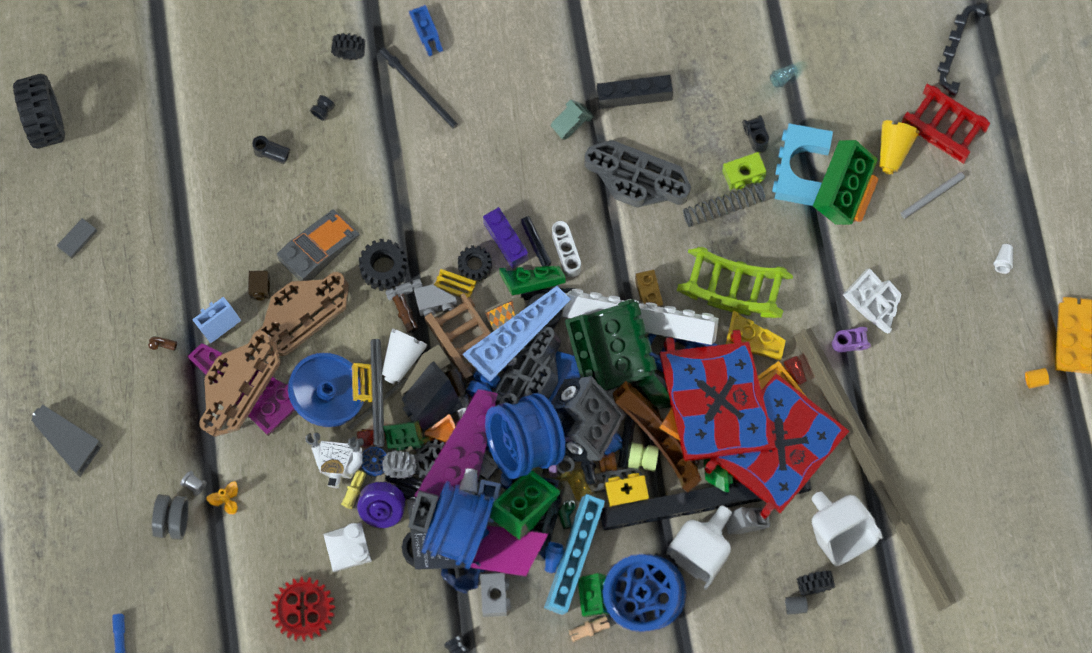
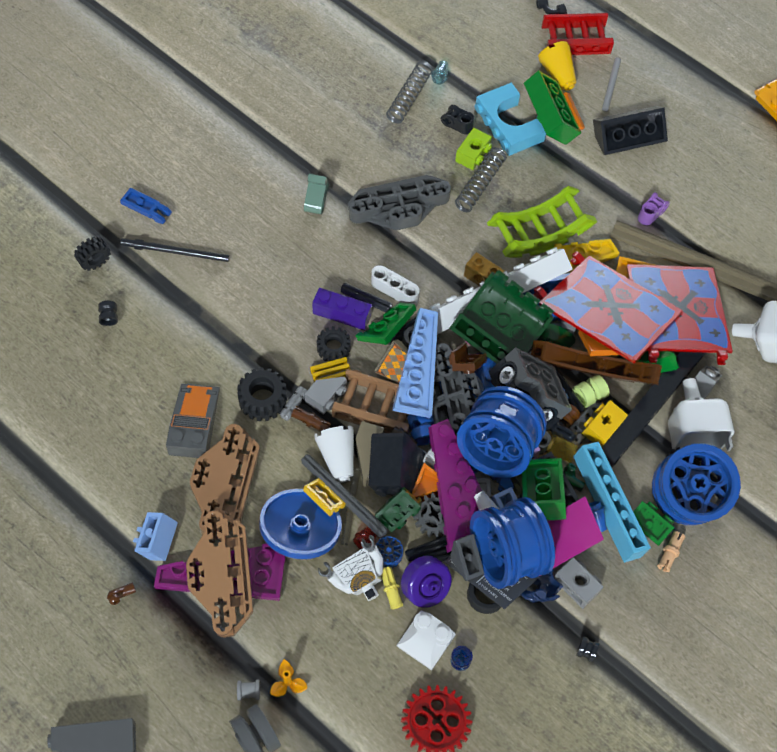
camera: 45 degrees left, 10 degrees down
(259, 285) = (169, 483): dark brown brick -> none
(271, 151) = (90, 373): black piece -> none
(362, 583) = (458, 661): none -> clear blue wheel
(399, 464) = (415, 535): light grey gear -> none
(554, 356) = (466, 362): none -> reddish brown bracket
(634, 91) = (346, 147): black brick -> none
(769, 56) = (421, 73): none -> dark grey piece
(795, 370) = (635, 253): clear red cone -> none
(874, 299) = (641, 173): white slope -> none
(903, 252) = (631, 130): none -> black slope
(1004, 259) = (697, 91): white cone -> none

